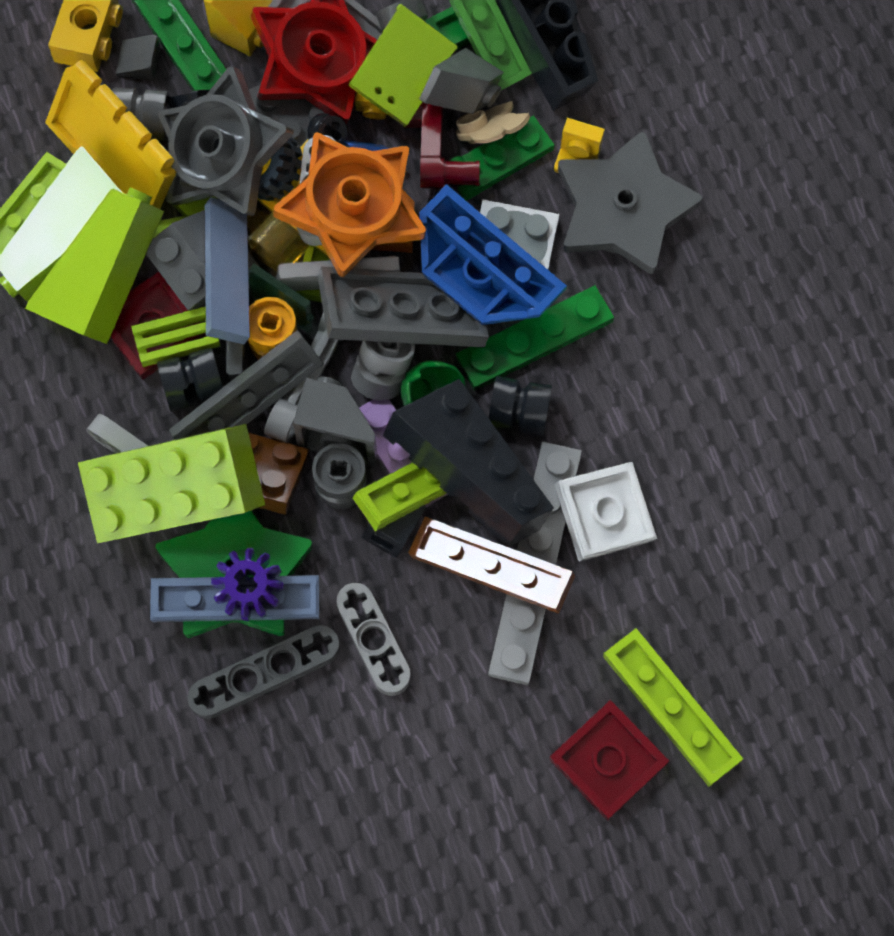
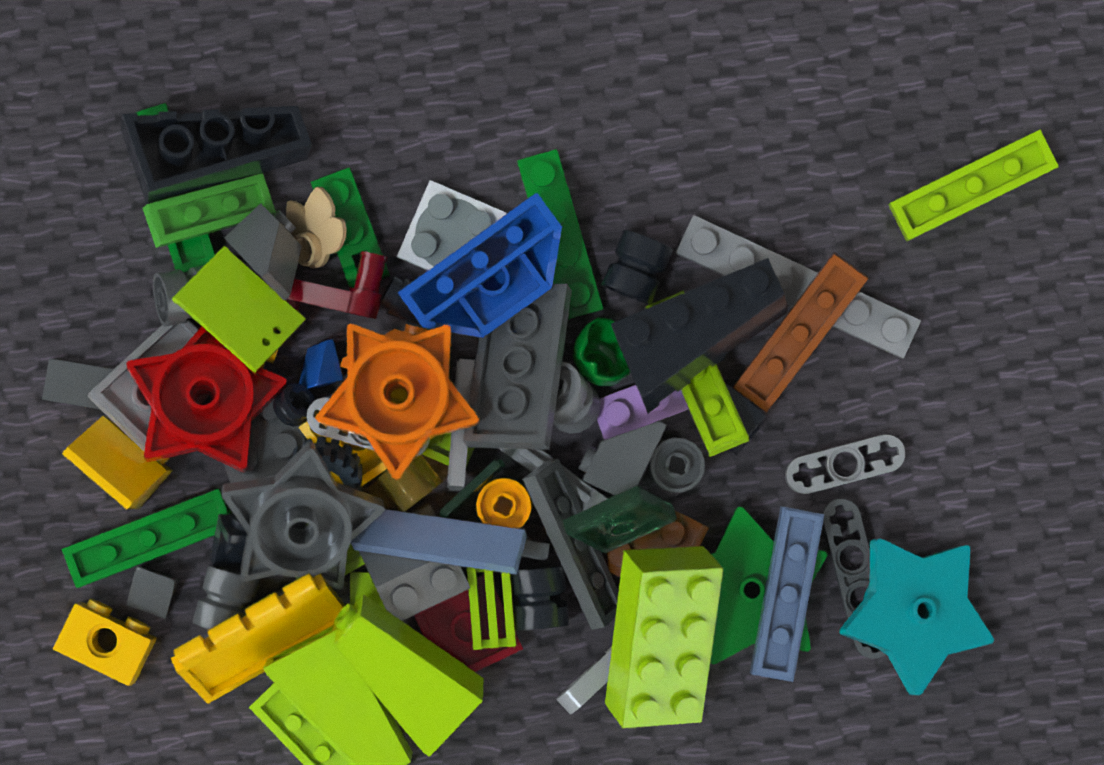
camera: 75 degrees left, 15 degrees up
(233, 697) = (890, 615): none -> teal plate
(244, 568) = (781, 594): dark purple gear -> none
(276, 422) = (620, 519): none -> clear green tile
(579, 141) = (366, 144): yellow bracket -> none
(605, 511) = (763, 205): white tile -> none
(608, 760) = (1013, 259): dark red plate -> none
(619, 228) = (446, 139): dark grey plate -> none

